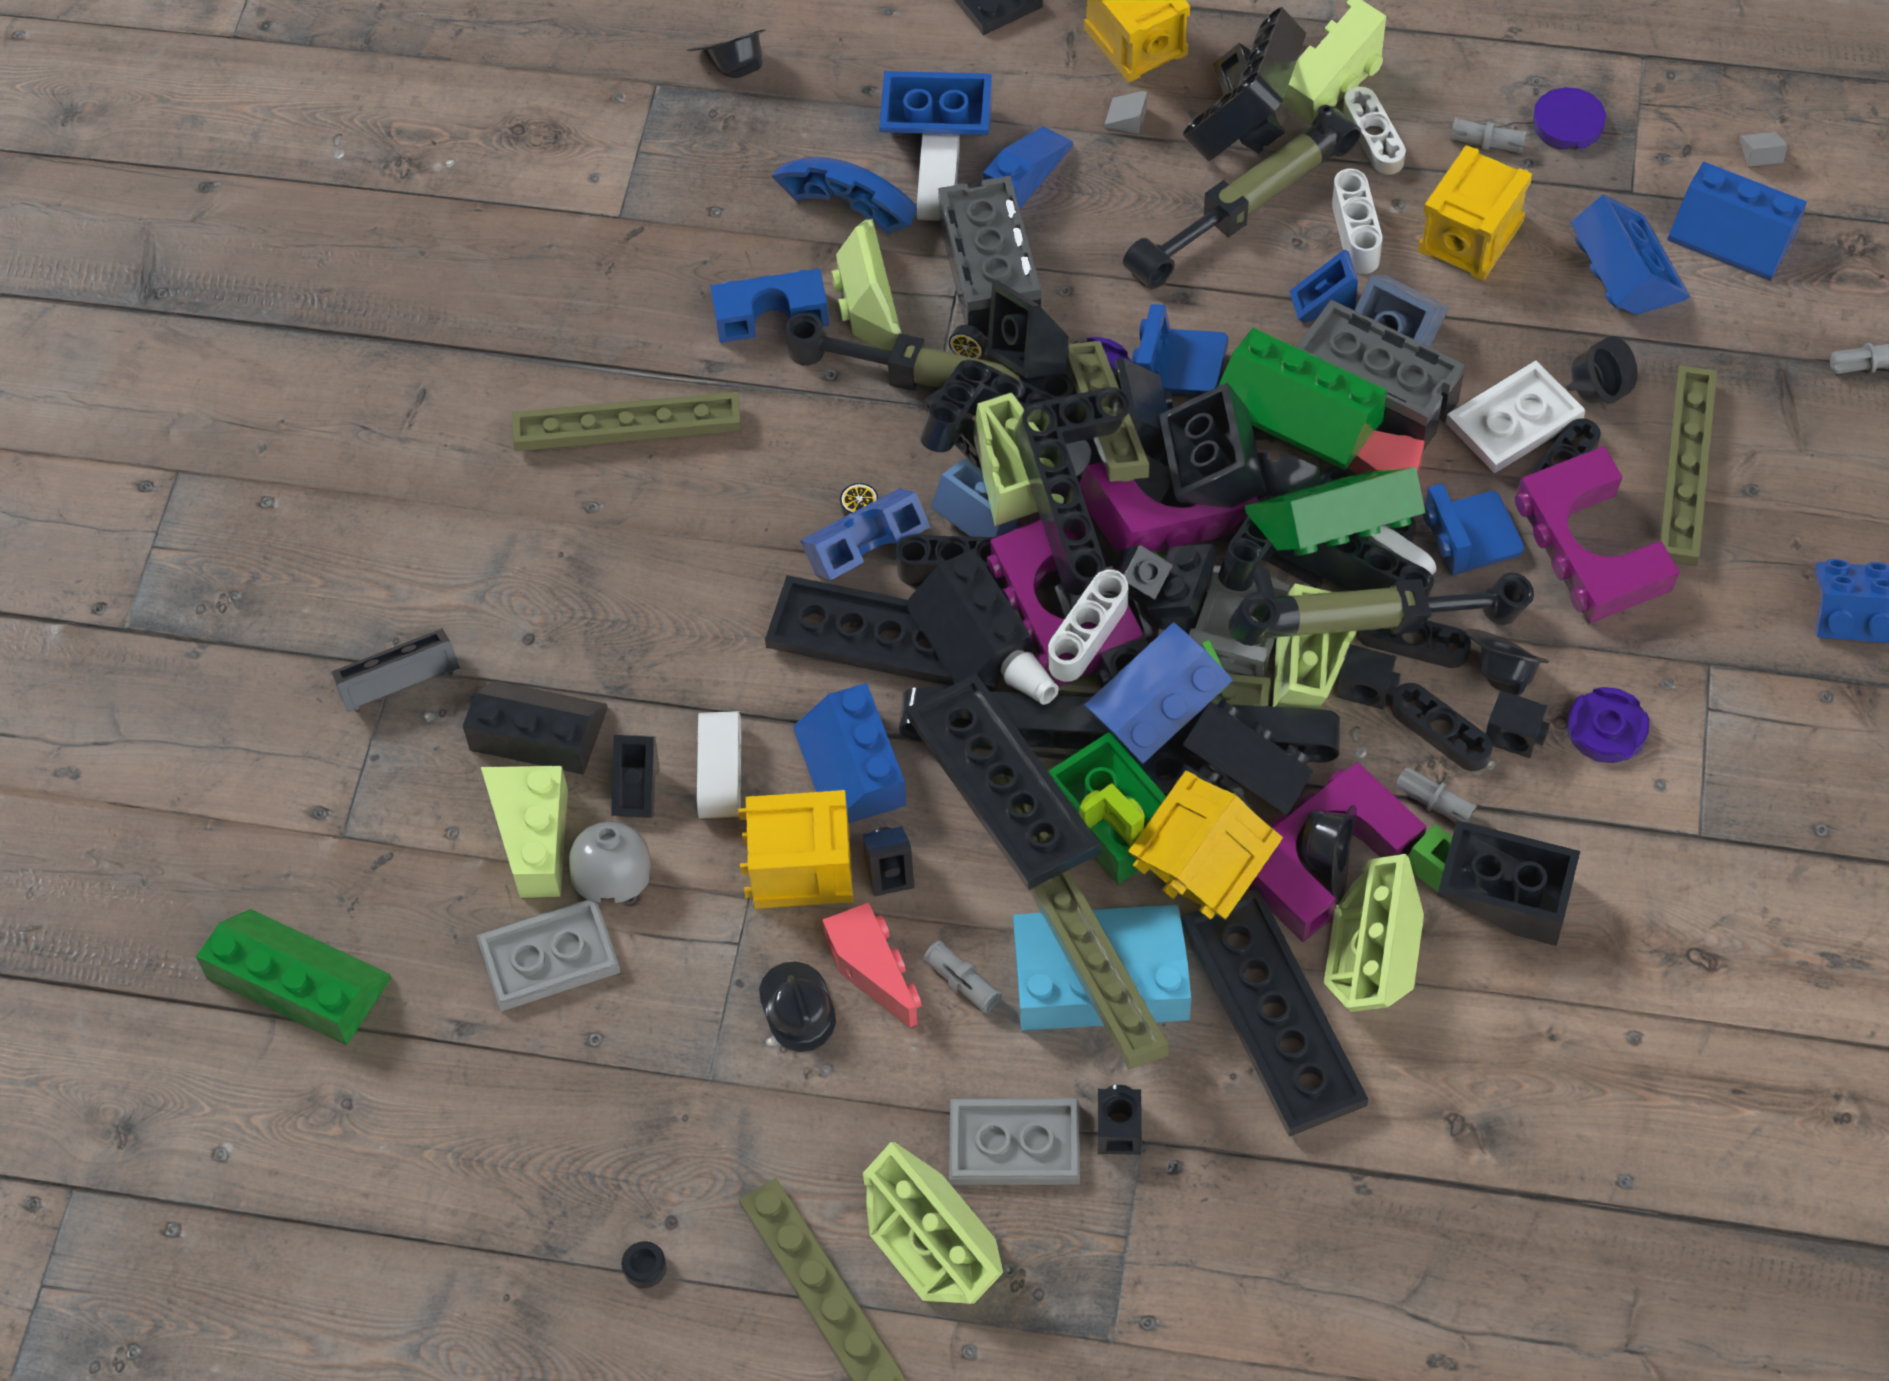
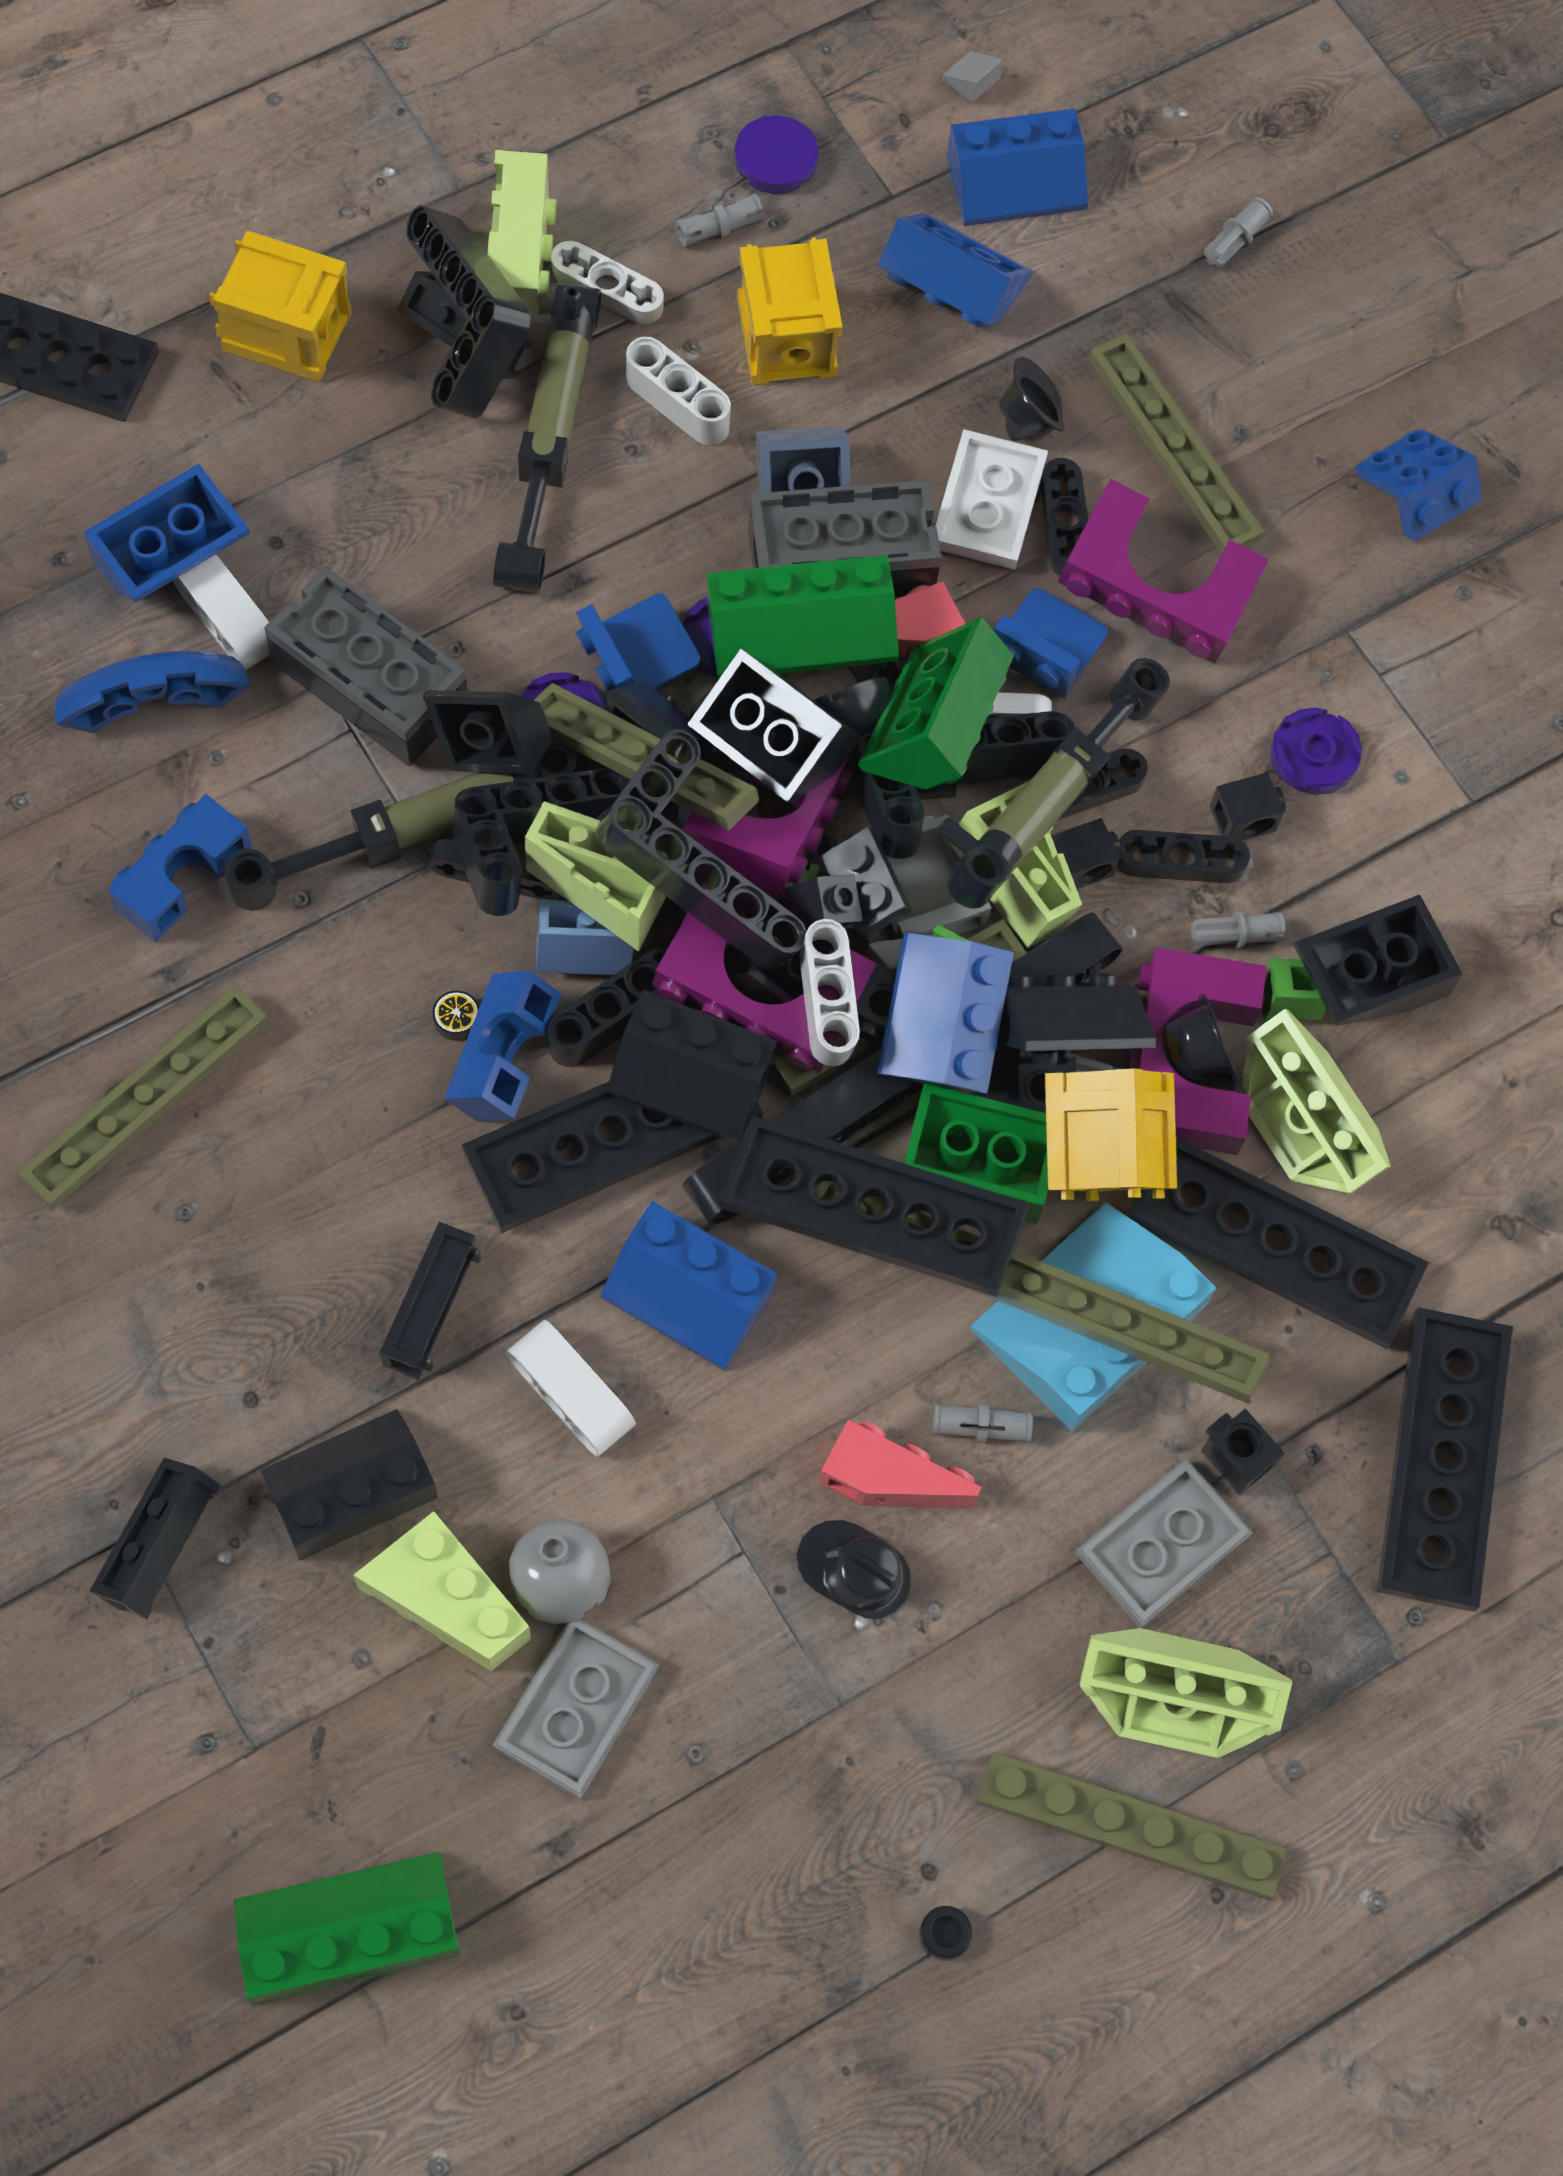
camera: 50 degrees left, 10 degrees up
(634, 775) = (505, 1465): black slope -> none
(681, 651) = (428, 1301): none -> black container
(797, 849) = (736, 1417): yellow container -> none
(865, 289) = (268, 786): yellowish green wedge -> none
(888, 860) = (819, 1358): black slope -> none
(968, 341) = (417, 771): black tile -> none
(1028, 676) = (800, 1081): white cone -> none
(1029, 161) = (302, 536): blue slope -> none
(1121, 813) = (1014, 1158): lime bracket -> none
(1127, 112) = (352, 415): light grey slope -> none
(1261, 1262) = (1416, 1474): none -> black plate
(1332, 281) = (714, 482): blue slope -> none
(1505, 663) = (1188, 753): black piece -> none

